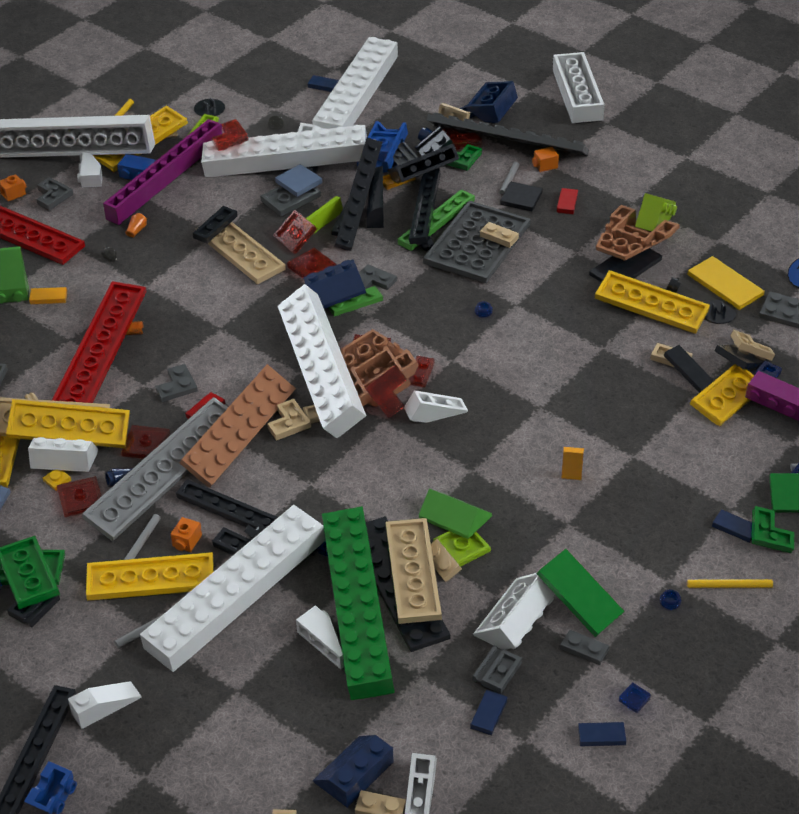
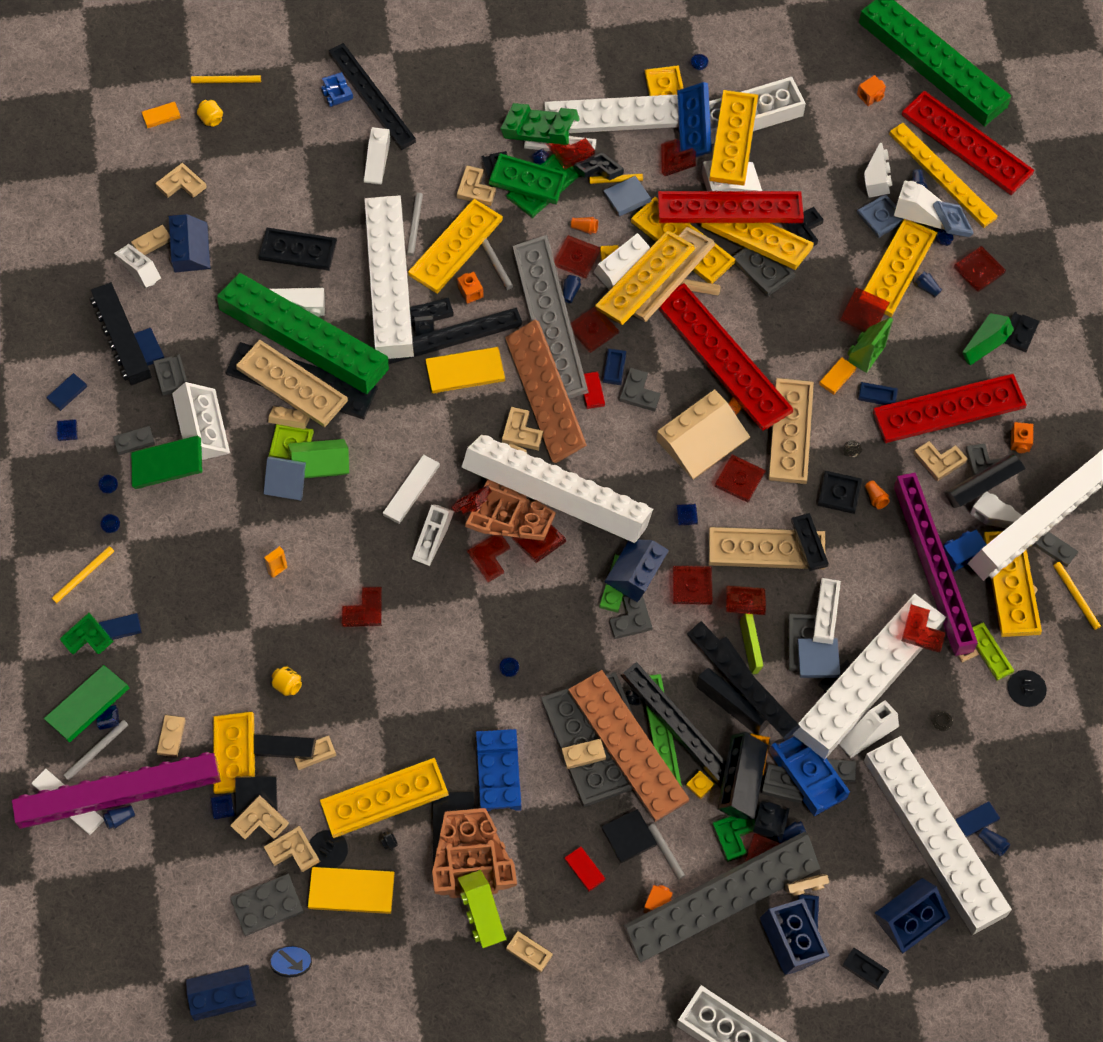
camera: 130 degrees right, 20 degrees up
(40, 507) = (586, 224): none -> orange cone
(44, 270) = (877, 394): none -> dark blue tile
(73, 175) = (984, 480): none -> black brick
(74, 212) = (938, 464): none -> tan plate
(75, 607) = (472, 189): none -> tan plate
(152, 244) = (840, 492): none -> black tile
(153, 276) = (792, 434): none -> tan plate
(169, 410) = (614, 366): none -> dark blue tile
(179, 330) = (702, 434): none -> tan slope
(197, 291) = (740, 478): none -> clear red plate
(258, 297) = (687, 514): none -> clear blue plate
(260, 194) = (826, 611): none -> white tile
(268, 488) = (465, 370): none -> yellow tile
(268, 687) = (297, 248): none -> black tile
(331, 68) = (995, 842): none -> dark blue cone
(412, 448) = (411, 489): none -> white tile
(416, 74) = (913, 914): none -> dark blue slope
(448, 188) = (700, 785): none -> yellow plate
(466, 222) = (628, 746): none -> nougat plate
(471, 75) = (865, 968): none -> black plate
(499, 513) = (284, 478): none -> sand blue tile
(502, 739) = (121, 334): none -> black brick
(539, 399) = (366, 614): none -> clear red plate
(562, 268) = (498, 769): none -> blue piece
(642, 629) = (108, 484): none -> clear blue plate
(646, 400) = (286, 681): none -> yellow head
(648, 186) = (529, 952): none -> tan plate
(740, 321) = (293, 844): none -> tan plate
(764, 436) = (171, 736): none -> tan plate

